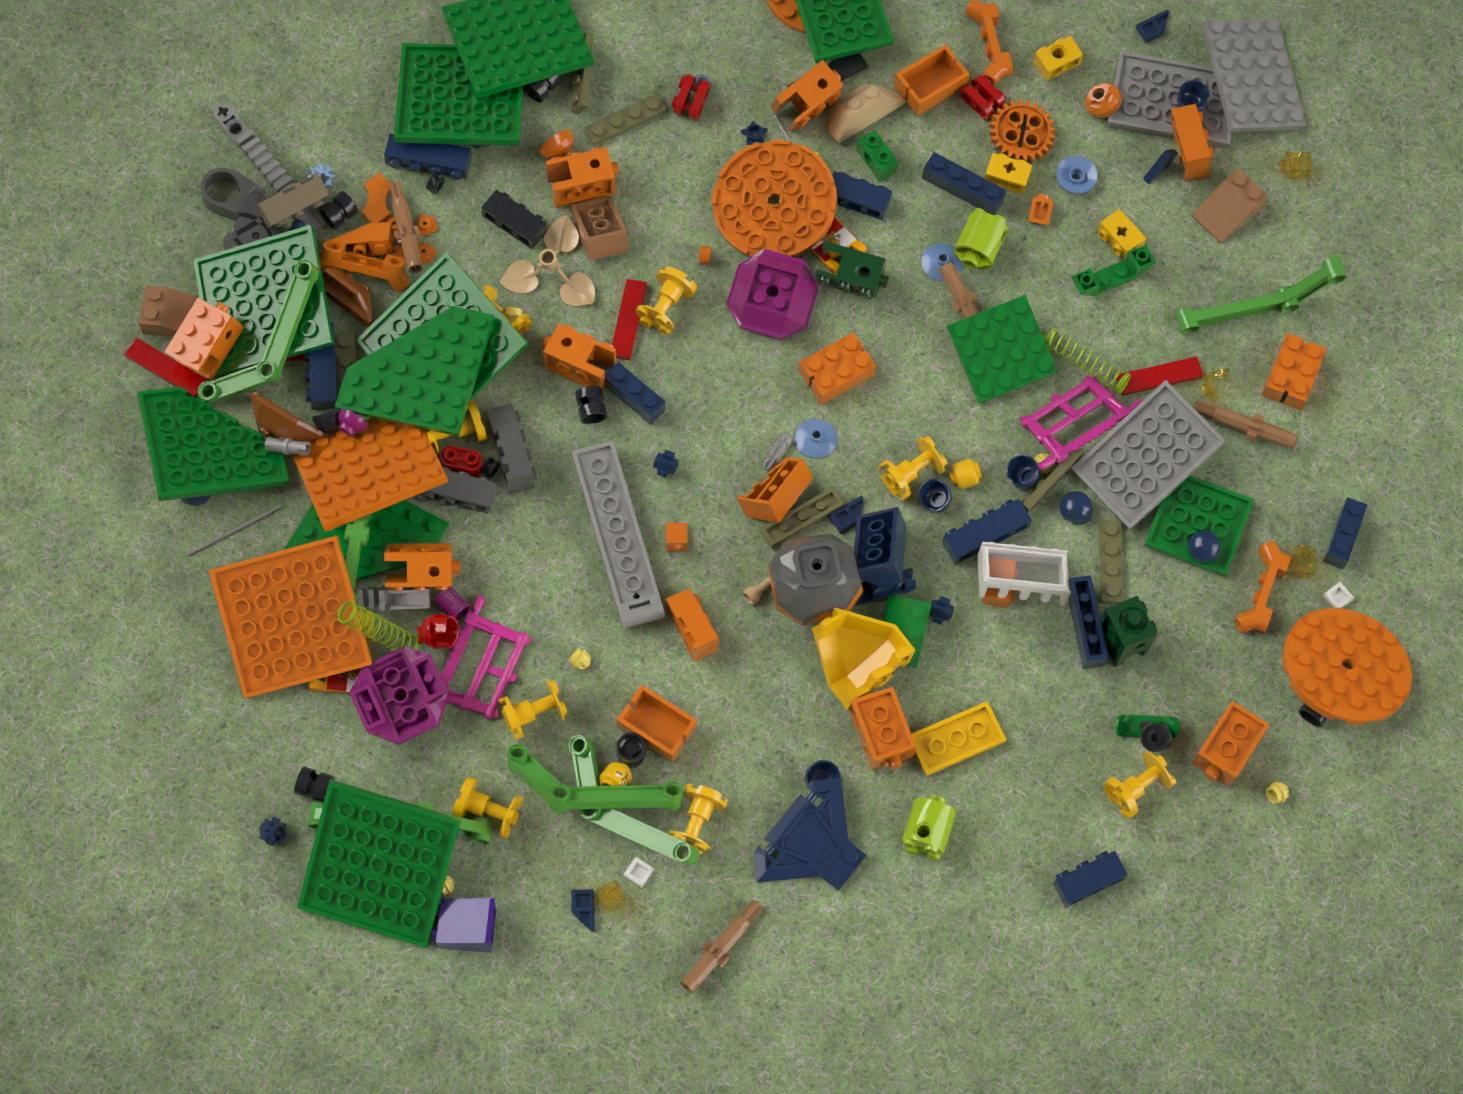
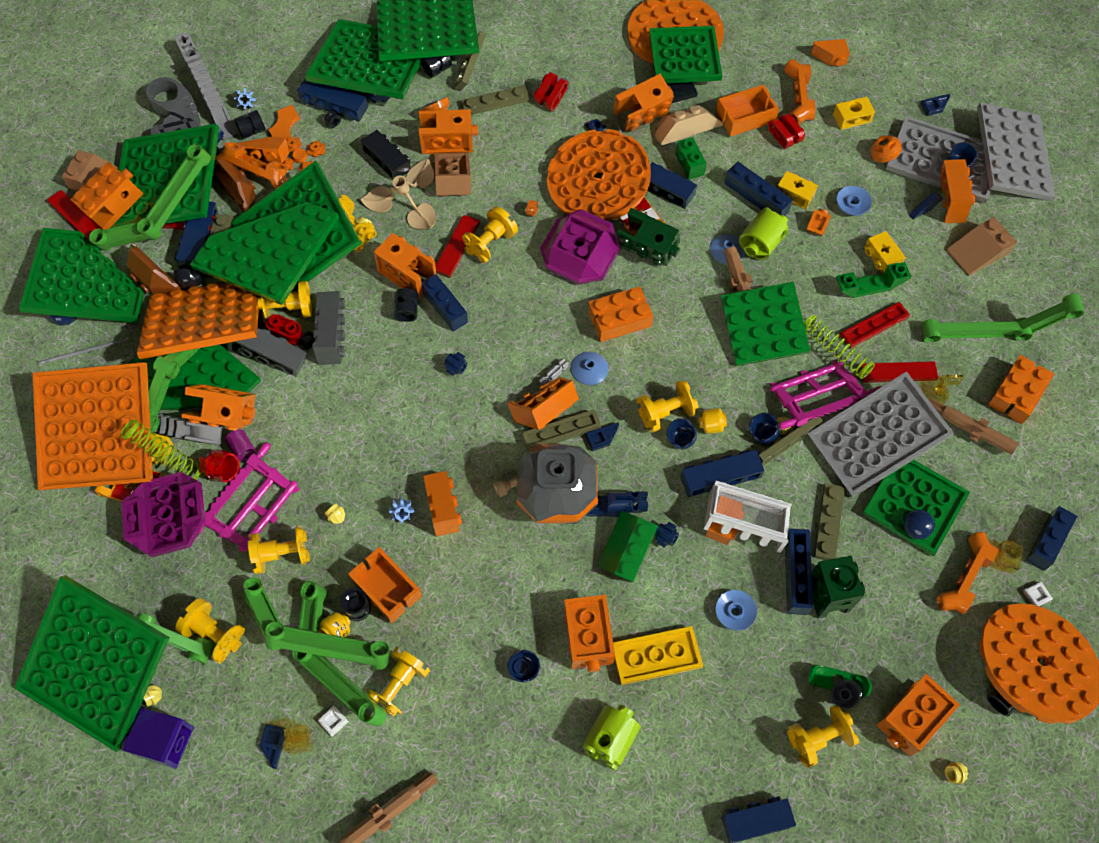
camera: 15 degrees right, 5 degrees down
(273, 831) = (19, 617): dark blue gear -> none
(287, 446) = (144, 290): light grey pin -> none
(293, 201) = (212, 108): dark tan wedge -> none
(312, 784) = (66, 568): black wheel -> none
(351, 423) = (200, 280): magenta piece -> none
(406, 233) = (296, 146): medium nougat piece -> none
(618, 535) = (398, 416): light grey hinge -> none
(650, 640) = (405, 513): none -> light blue gear
(676, 537) = (448, 426): orange bracket -> none
(811, 839) = (499, 724): dark blue plate -> none
(859, 653) = (582, 557): yellow panel -> none
(880, 547) = (623, 468): dark blue slope -> none
(1029, 665) = (736, 600): none -> medium blue dish
(1041, 135) = (827, 163): orange gear -> none
(1076, 508) = (806, 469): dark blue hair -> none
(1124, 324) = (875, 324): none -> red tile
(1296, 165) = (1042, 225): clear yellow brick -> none

